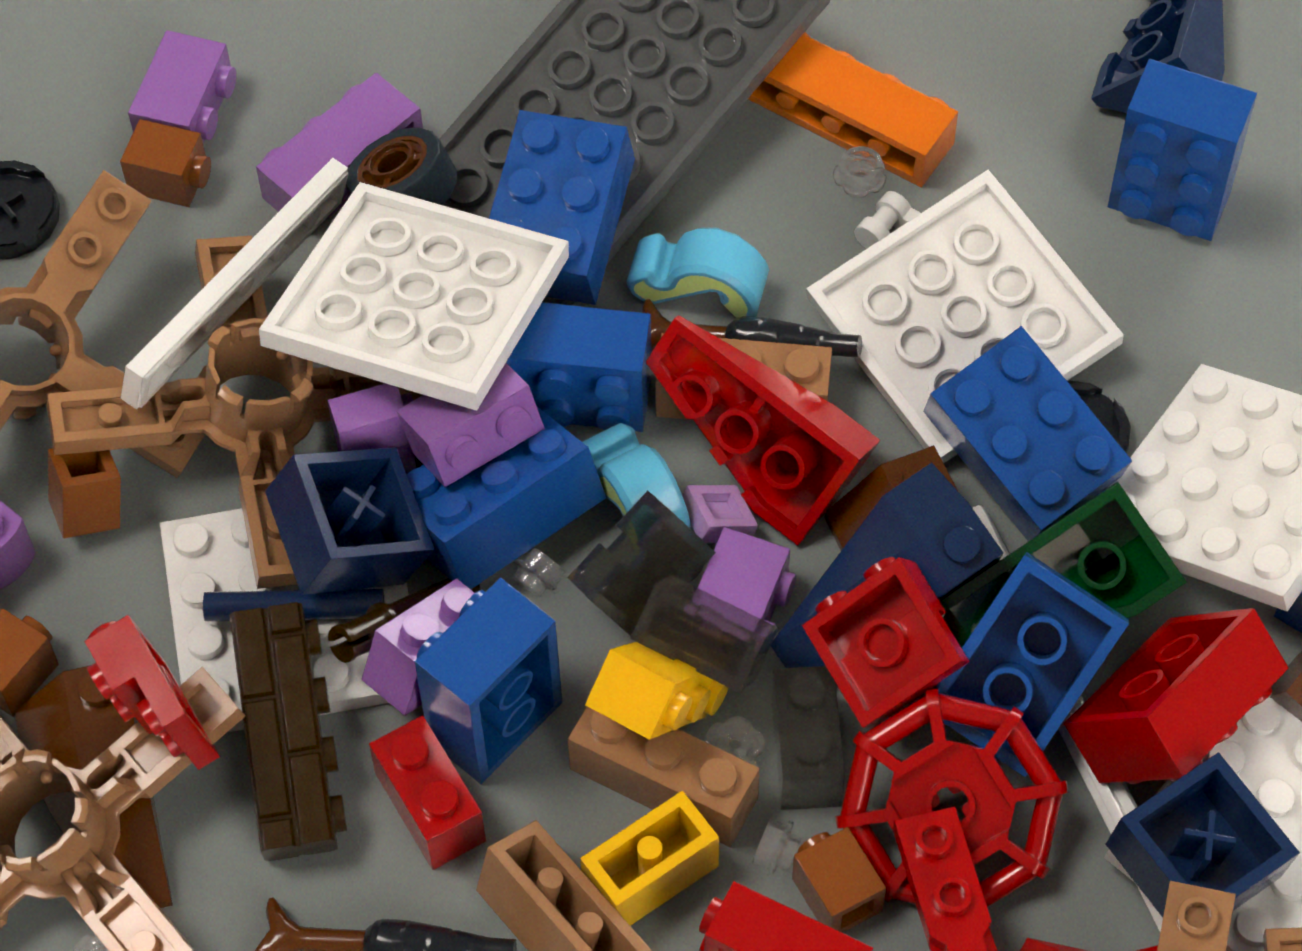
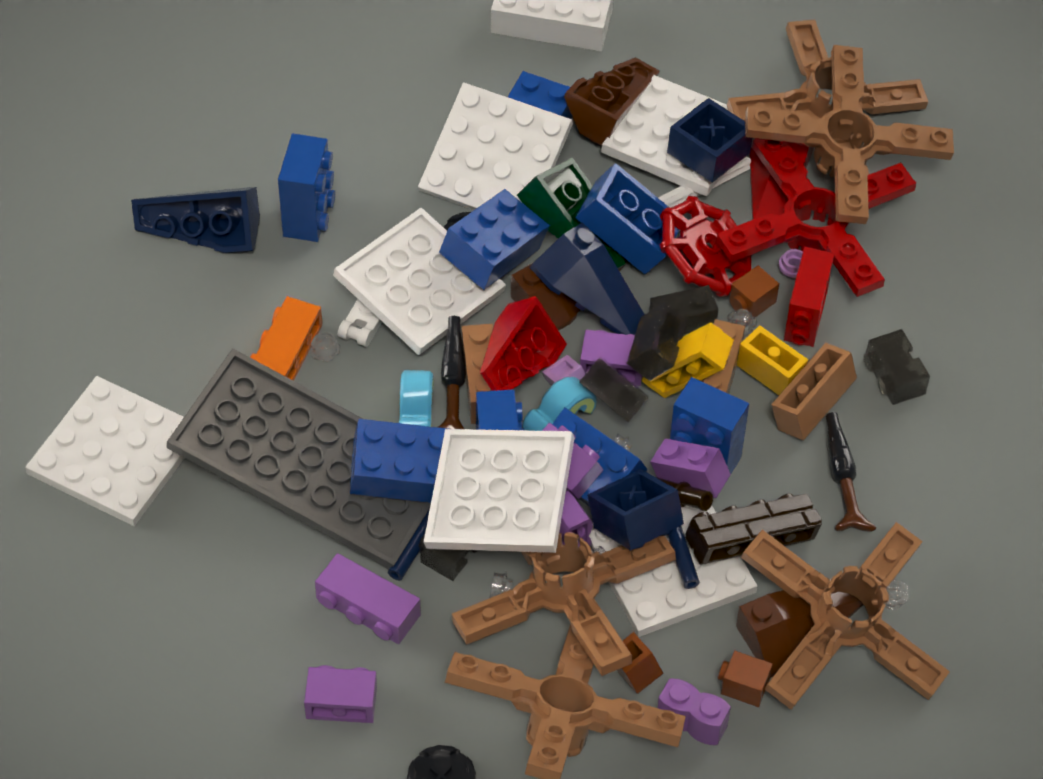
camera: 105 degrees left, 5 degrees down
(143, 687) = (778, 549): red plate -> none
(165, 162) = (395, 690): dark orange brick -> none
(233, 285) = (498, 597): white tile -> none
(406, 163) = (381, 533): wheel -> none
(428, 792) = (762, 465): red brick -> none
(885, 640) = (639, 268): red plate -> none
(1177, 697) = (643, 155): red brick -> none

